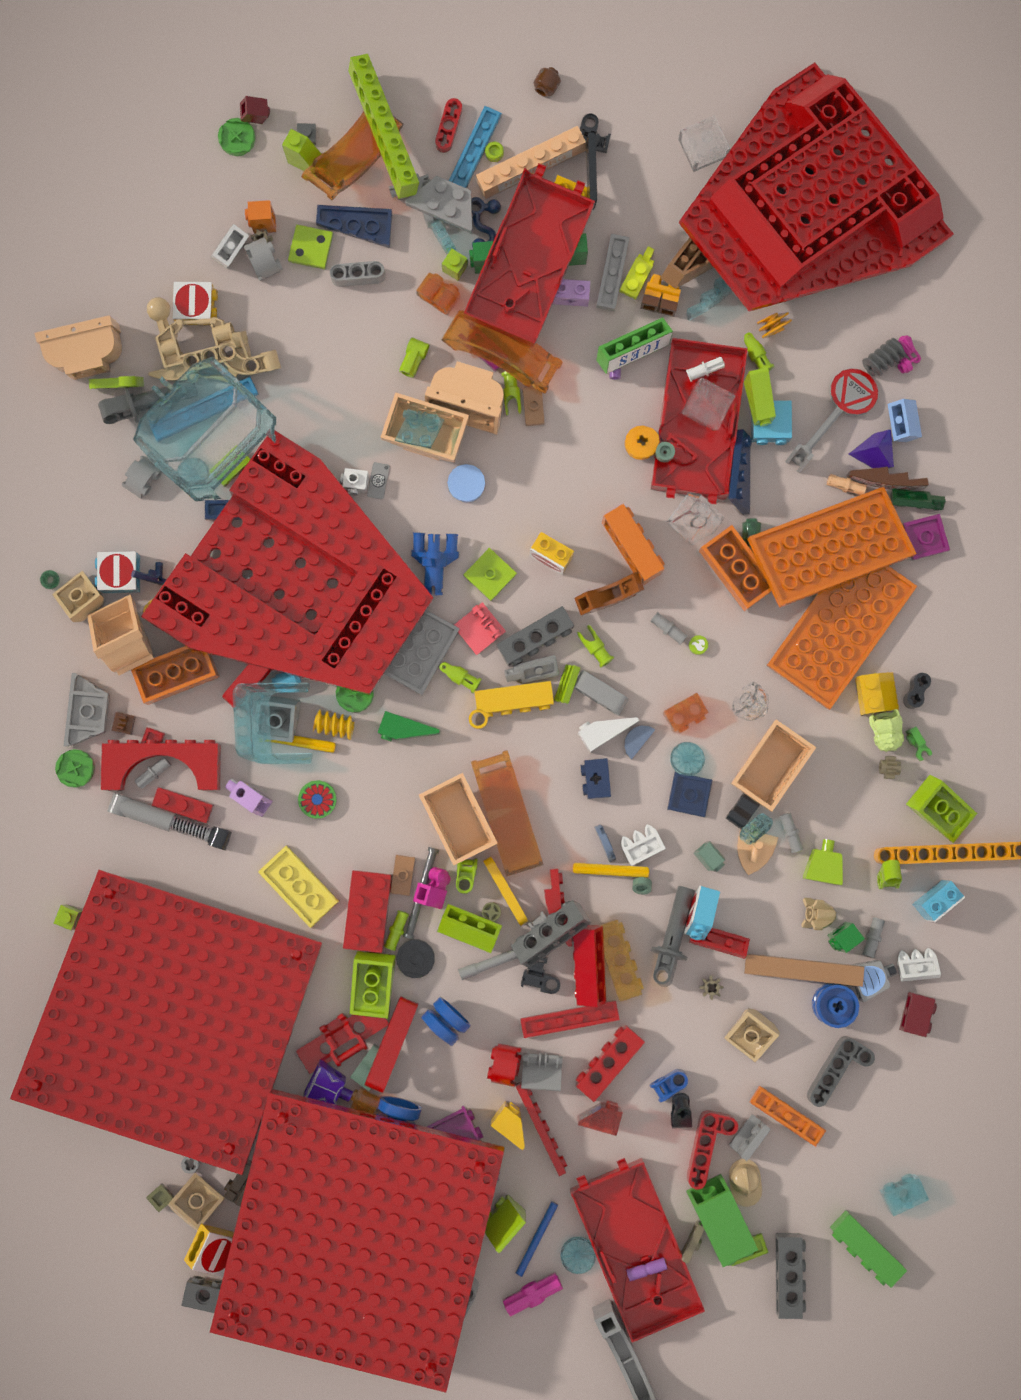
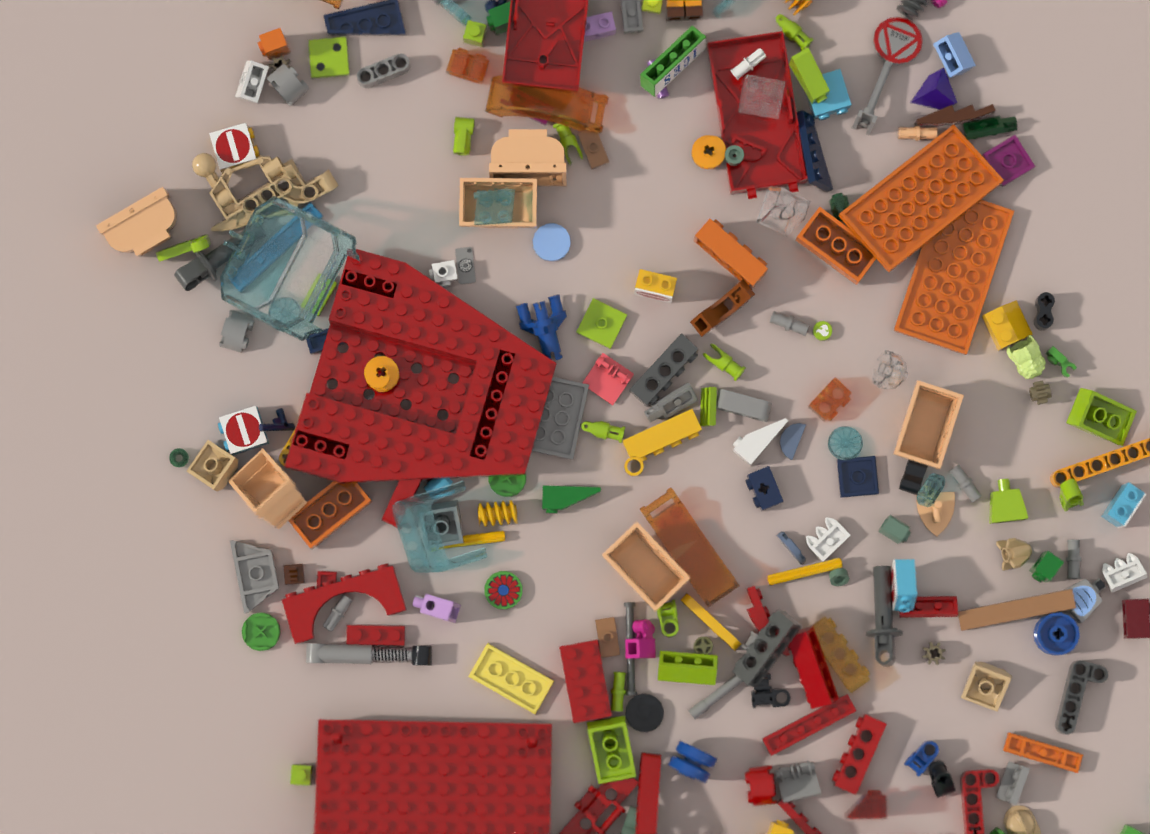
camera: 15 degrees left, 0 degrees up
(262, 566) = (381, 383): none -> light orange piece

